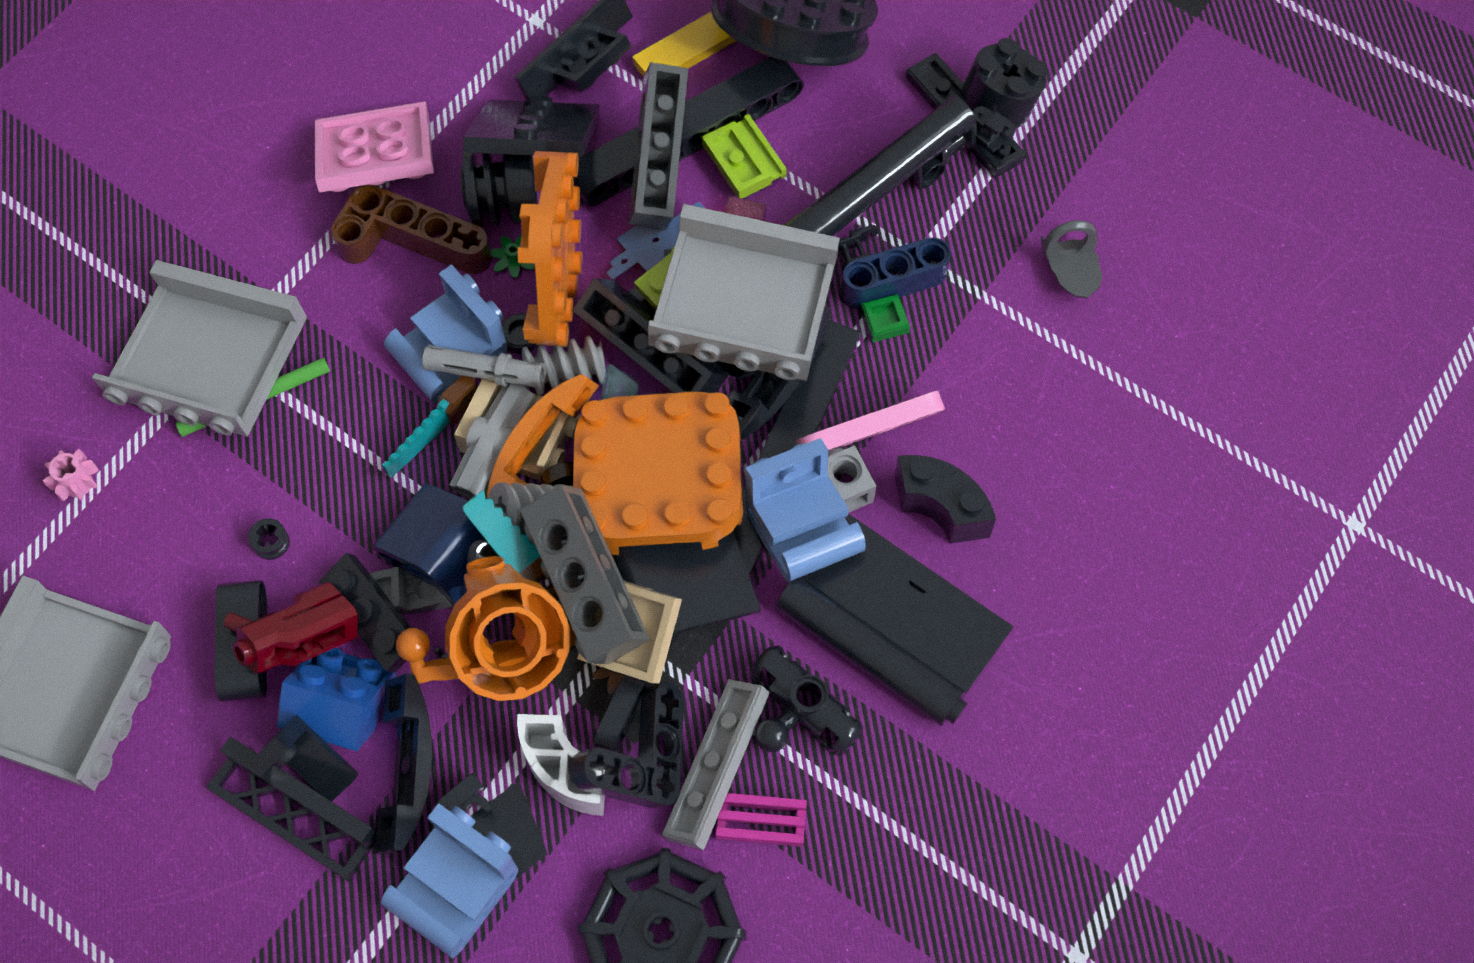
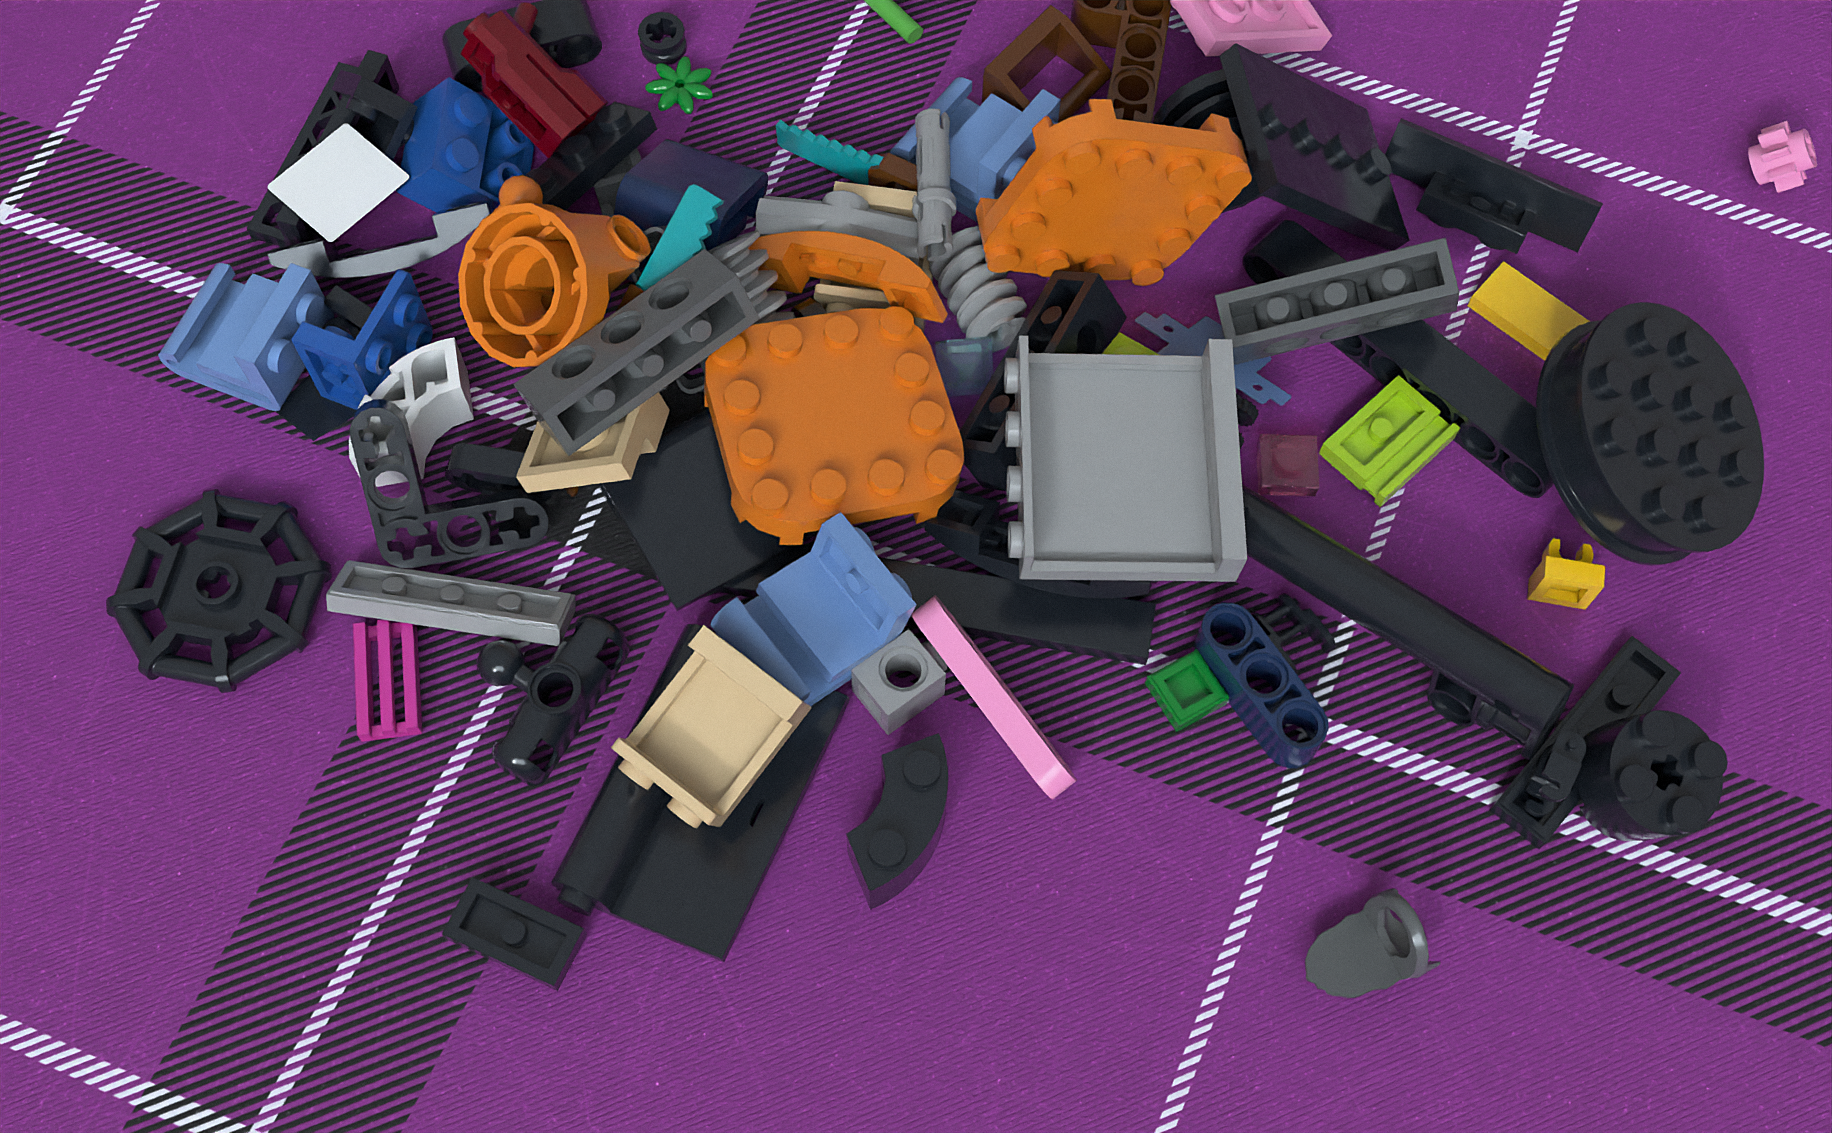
camera: 75 degrees right, 0 degrees up
(319, 533) = (680, 85): none -> green plant
(342, 788) = (338, 182): none -> white sticker
(367, 270) = (1032, 50): none -> reddish brown tile
(510, 803) = (352, 367): none -> blue bracket
(864, 90) = (1565, 580): none -> yellow tile
(872, 588) = (711, 732): none -> tan panel
(969, 756) = (514, 933): none -> black plate

